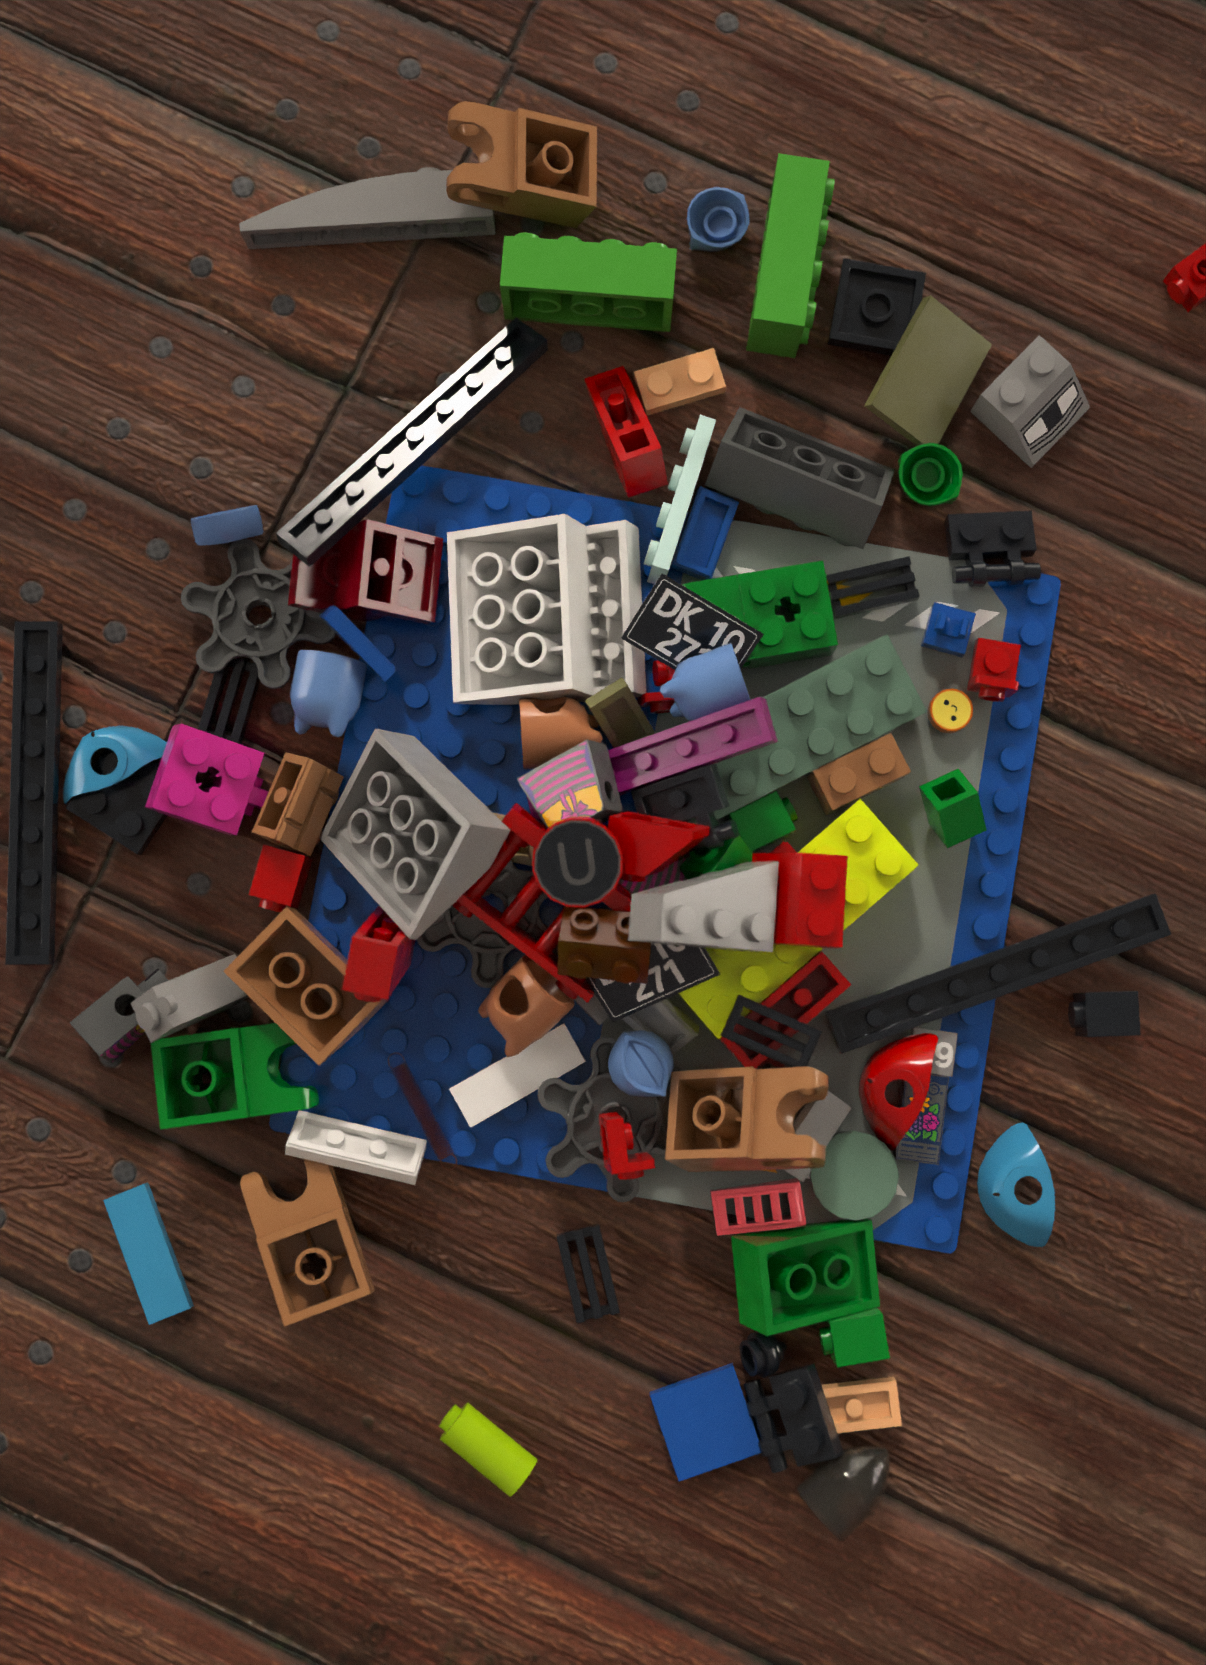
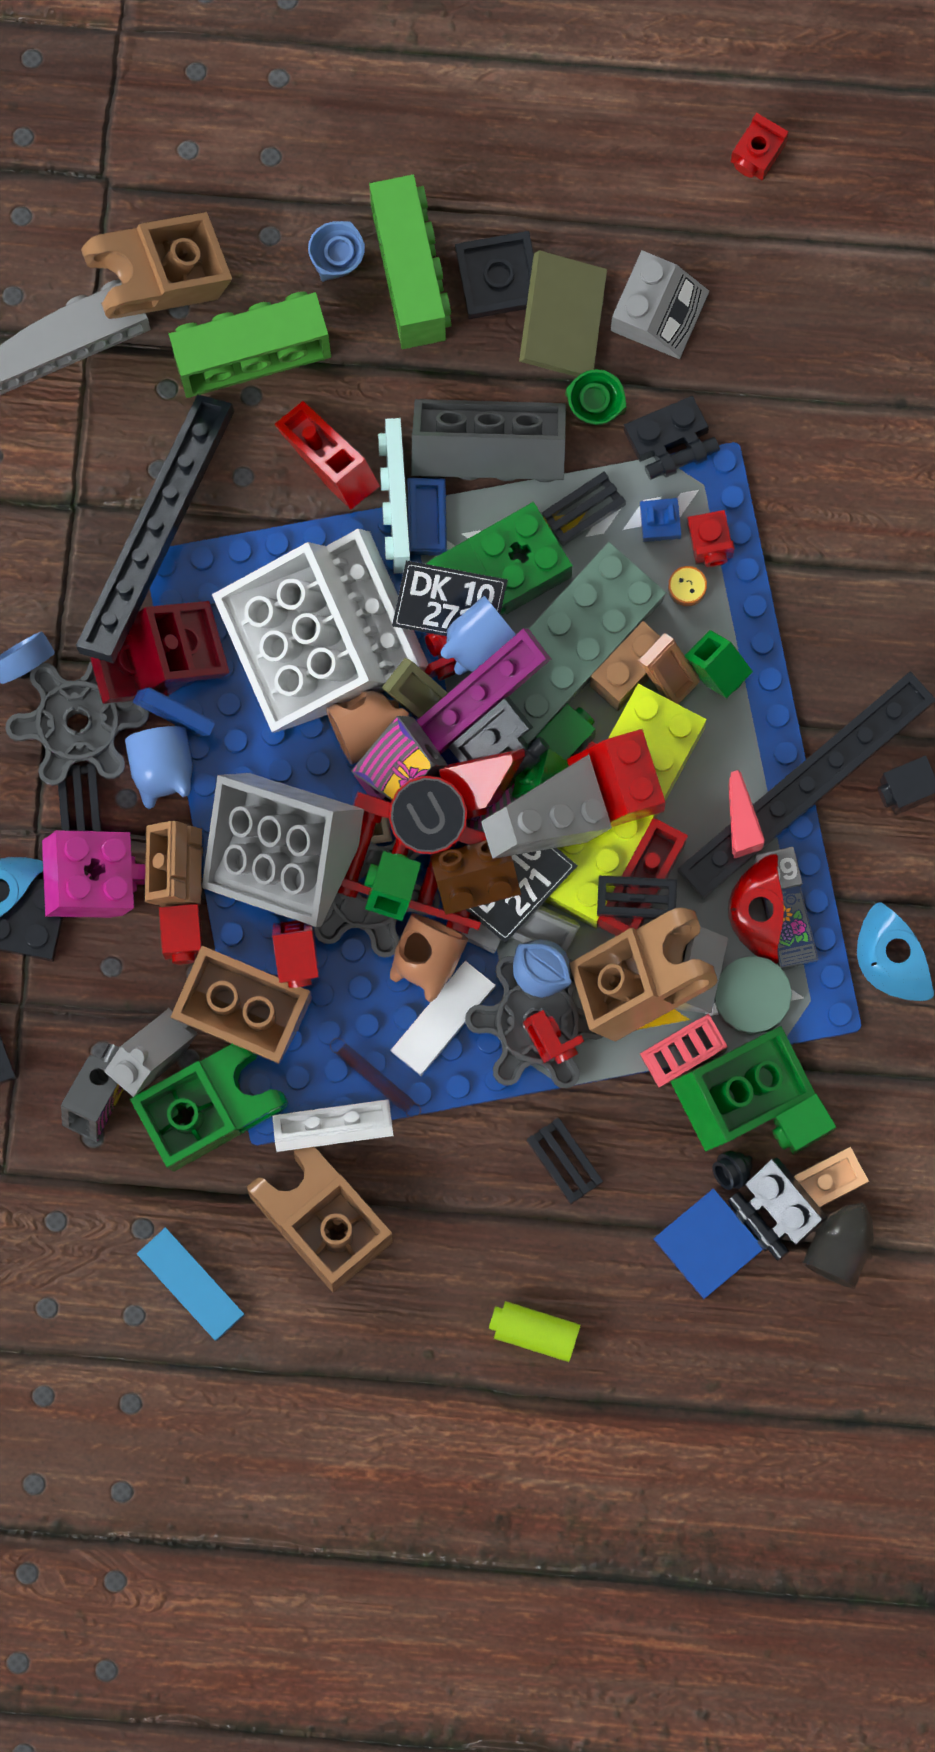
camera: 20 degrees left, 5 degrees down
(510, 922) = (391, 885): none -> green brick
(679, 381) = (356, 396): light nougat plate -> none
(898, 795) = (669, 669): none -> nougat tile
(916, 994) = (745, 827): none -> coral slope

